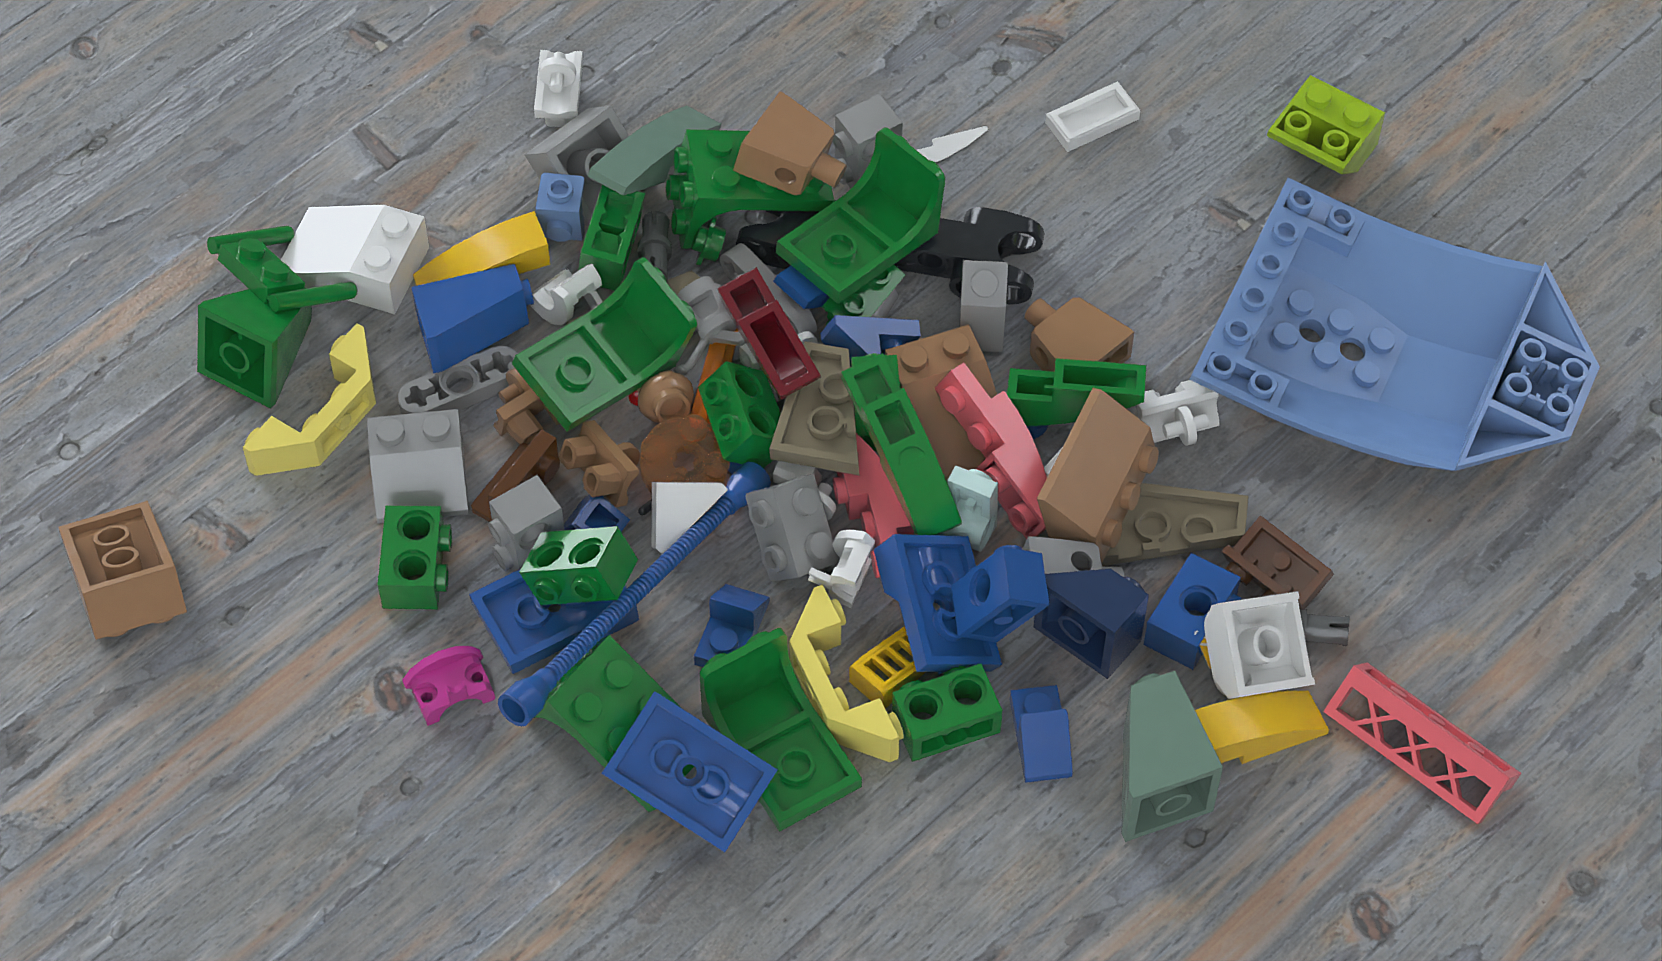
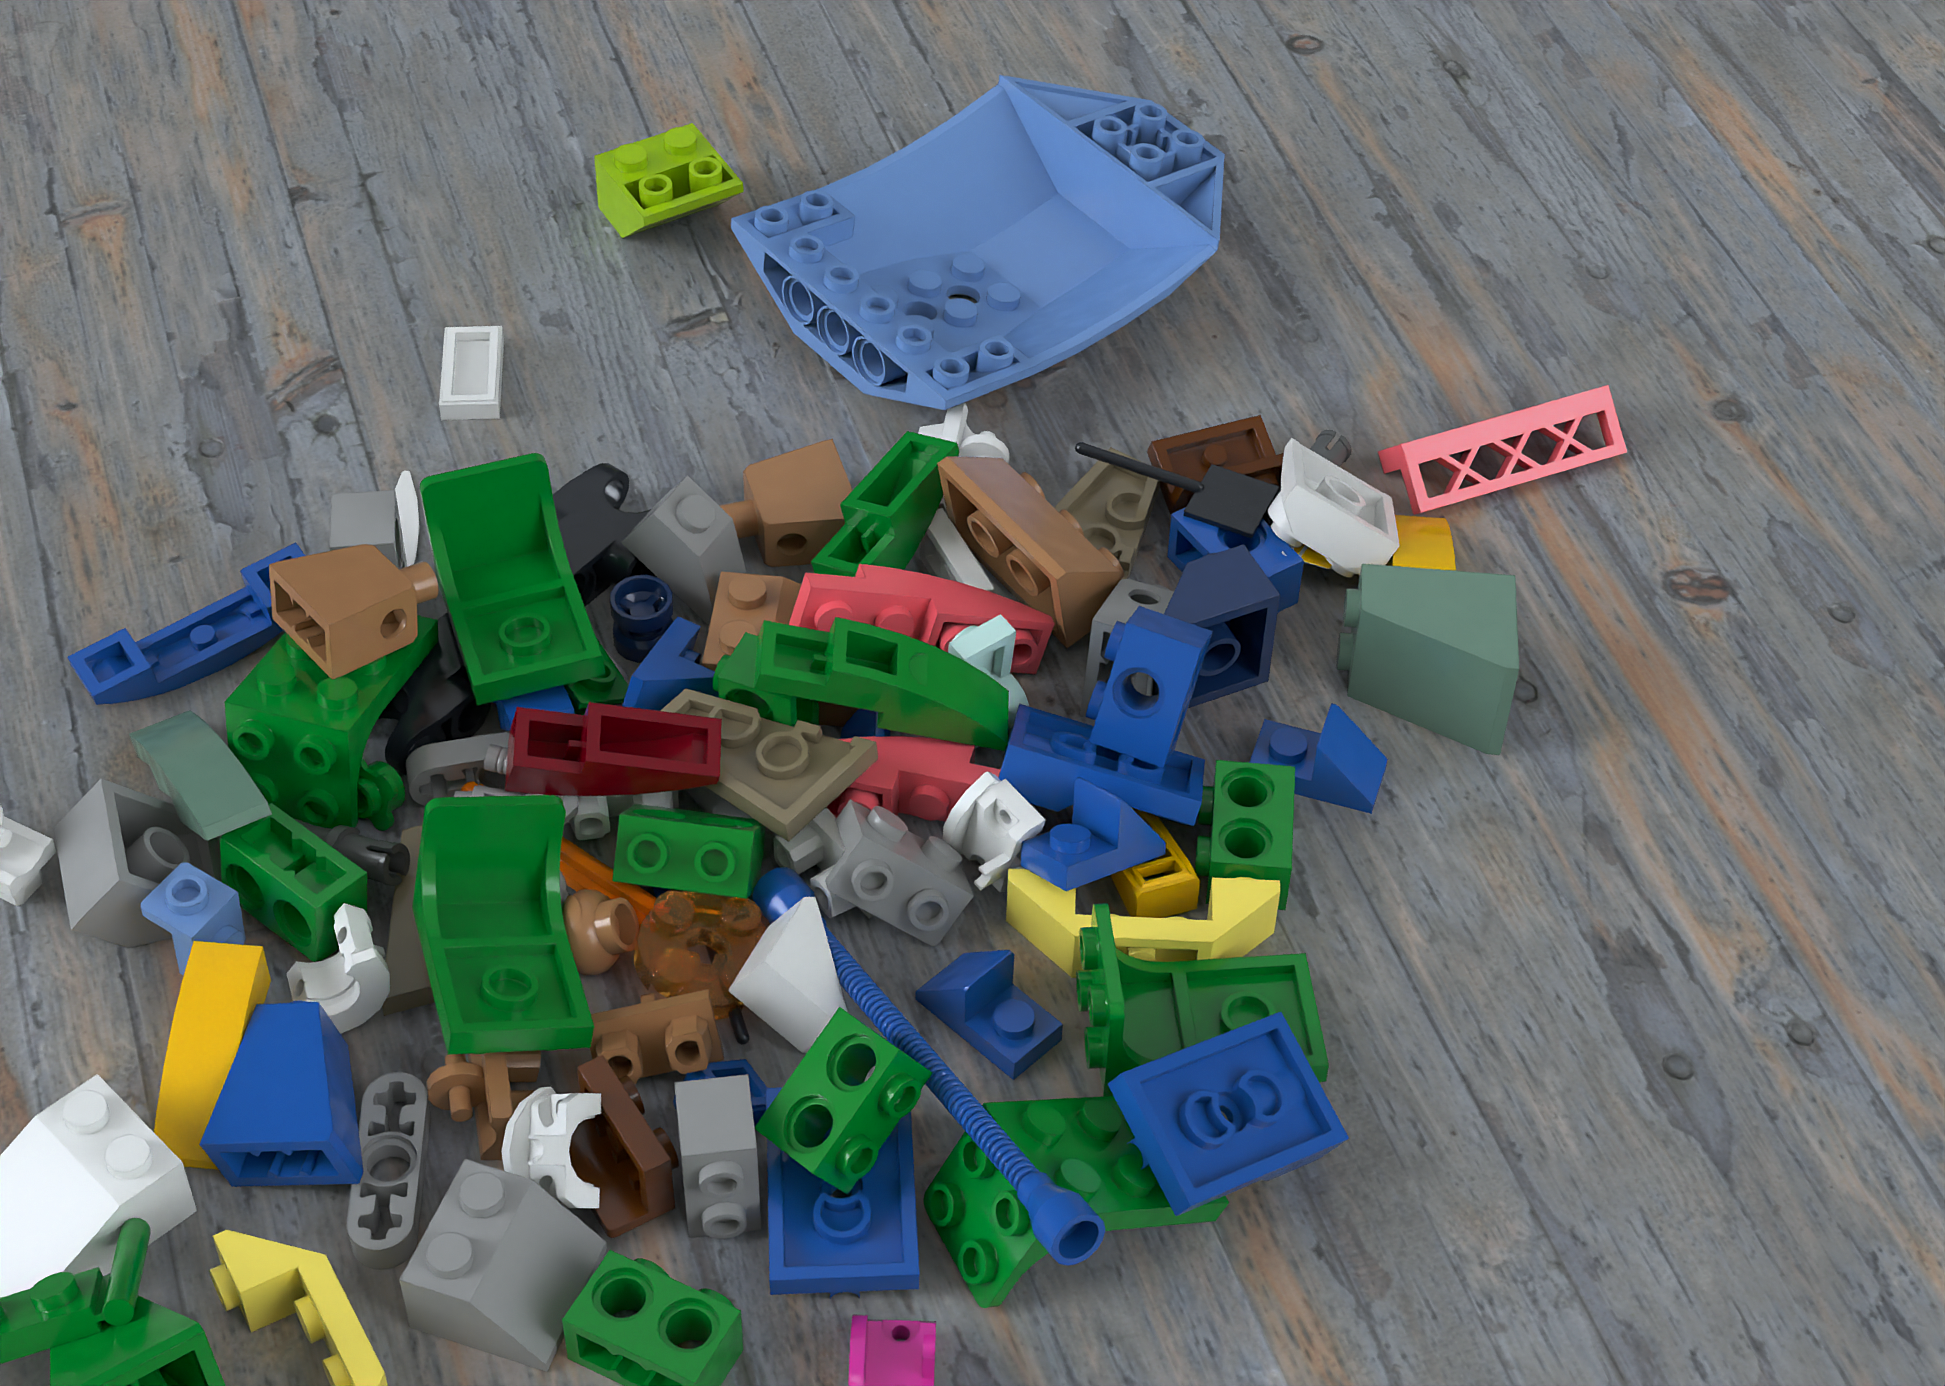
camera: 65 degrees left, 10 degrees down
(503, 433) = (540, 1139): none -> white piece
(736, 81) = (188, 649): none -> blue slope
(867, 624) = (1098, 843): none -> blue slope
(928, 302) = (640, 615): none -> dark blue wheel
(1221, 577) = (1220, 499): none -> black piece

